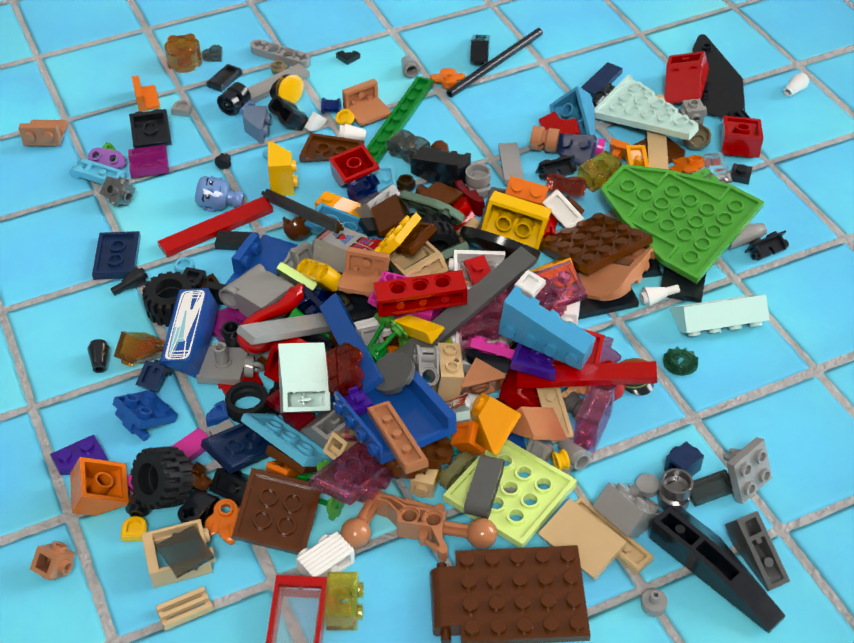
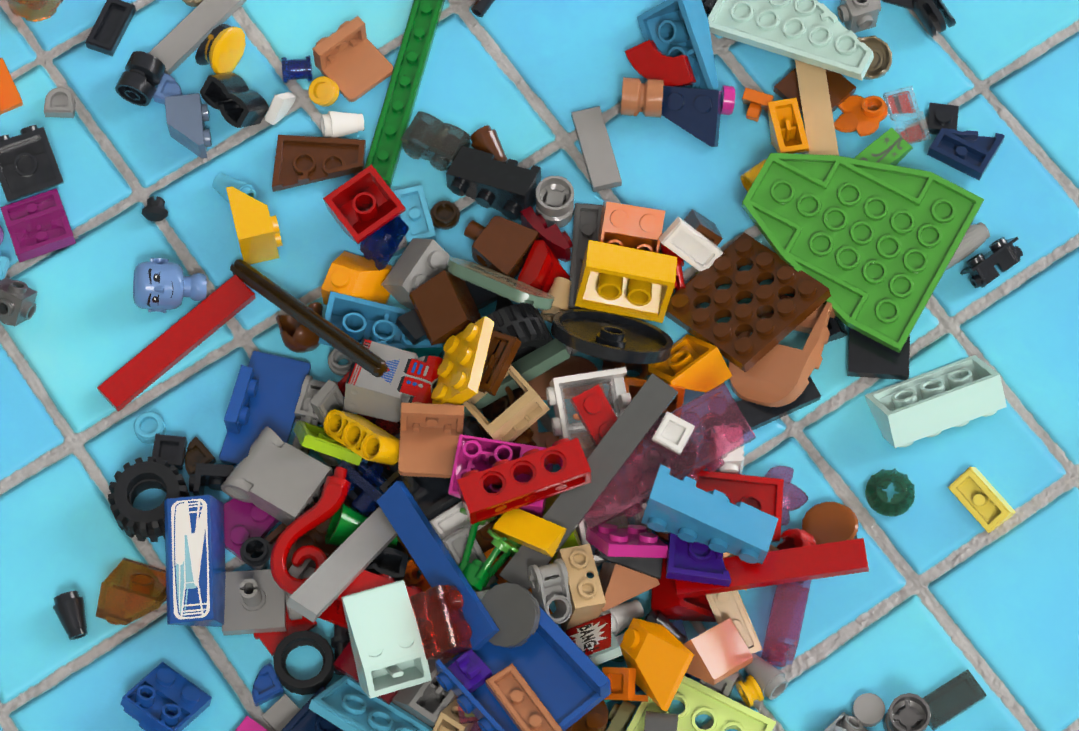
camera: 10 degrees left, 20 degrees up
(116, 254) = (42, 420): dark blue tile -> none
(134, 279) = (84, 465): black cone -> none
(152, 376) = (159, 639): dark blue bracket -> none
(230, 239) = (213, 366): black tile -> none
(562, 164) = (656, 156): black hinge -> none
(571, 186) = (693, 192): clear red brick -> none
(573, 403) = (758, 599): dark grey wheel -> none
(598, 170) = (738, 136): clear yellow brick -> none
(652, 295) = (840, 382): white cone -> none
(685, 458) = (912, 667): dark blue brick -> none
(741, 136) = (937, 50): red slope -> none
(746, 373) = (981, 499): none -> light yellow slope
(748, 469) = (998, 672): light grey plate -> none
(756, 187) = (965, 150): none -> dark blue wing

